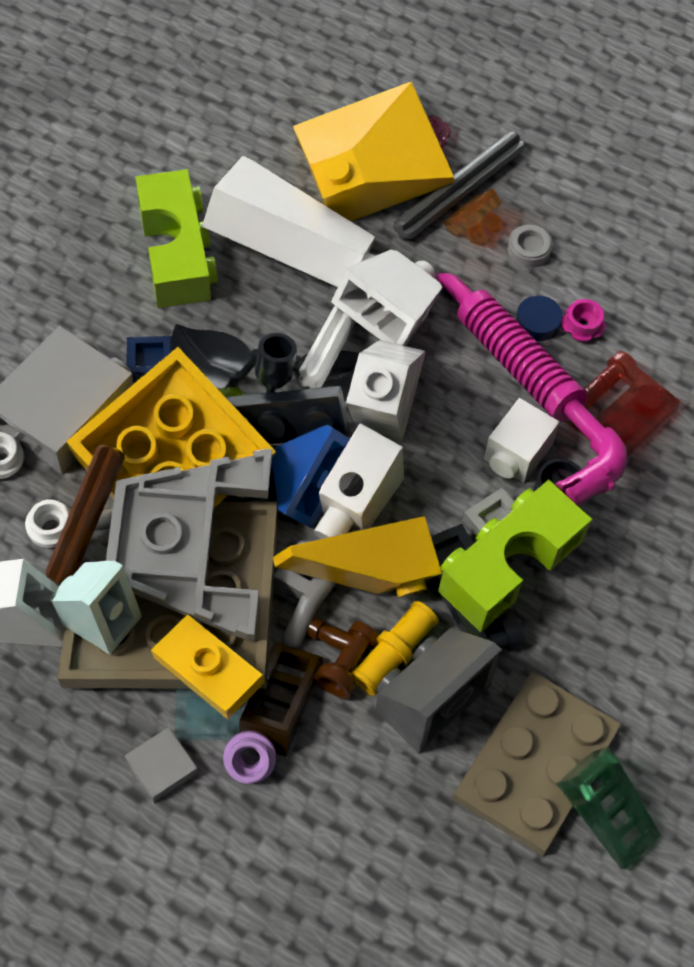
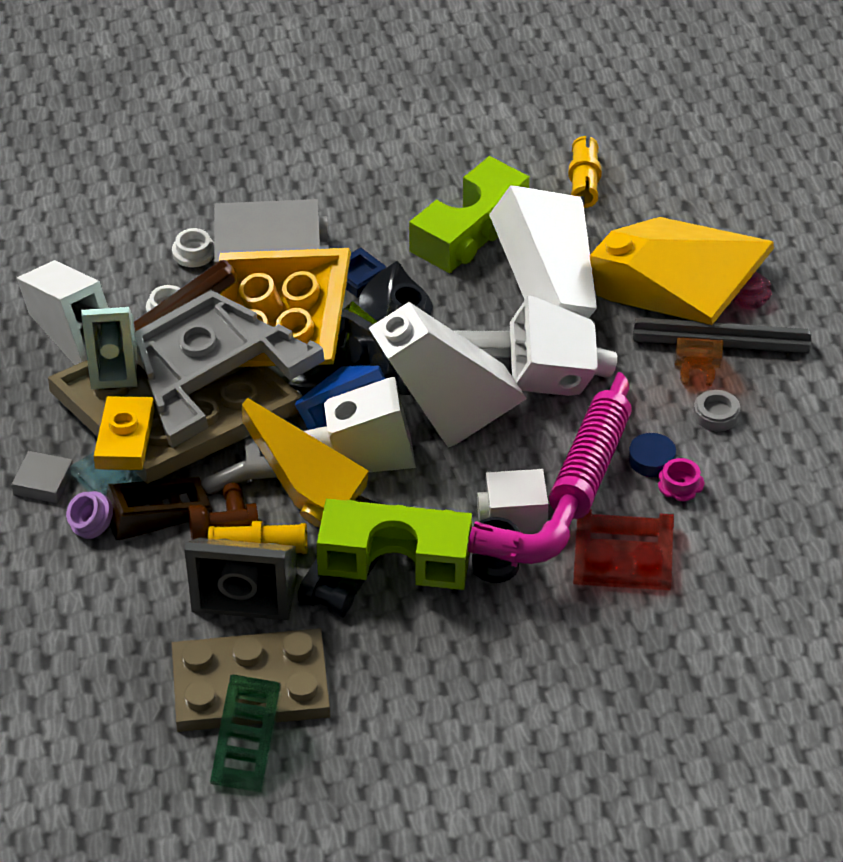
camera: 55 degrees right, 15 degrees down
(200, 132) = (585, 170): none -> yellow pin

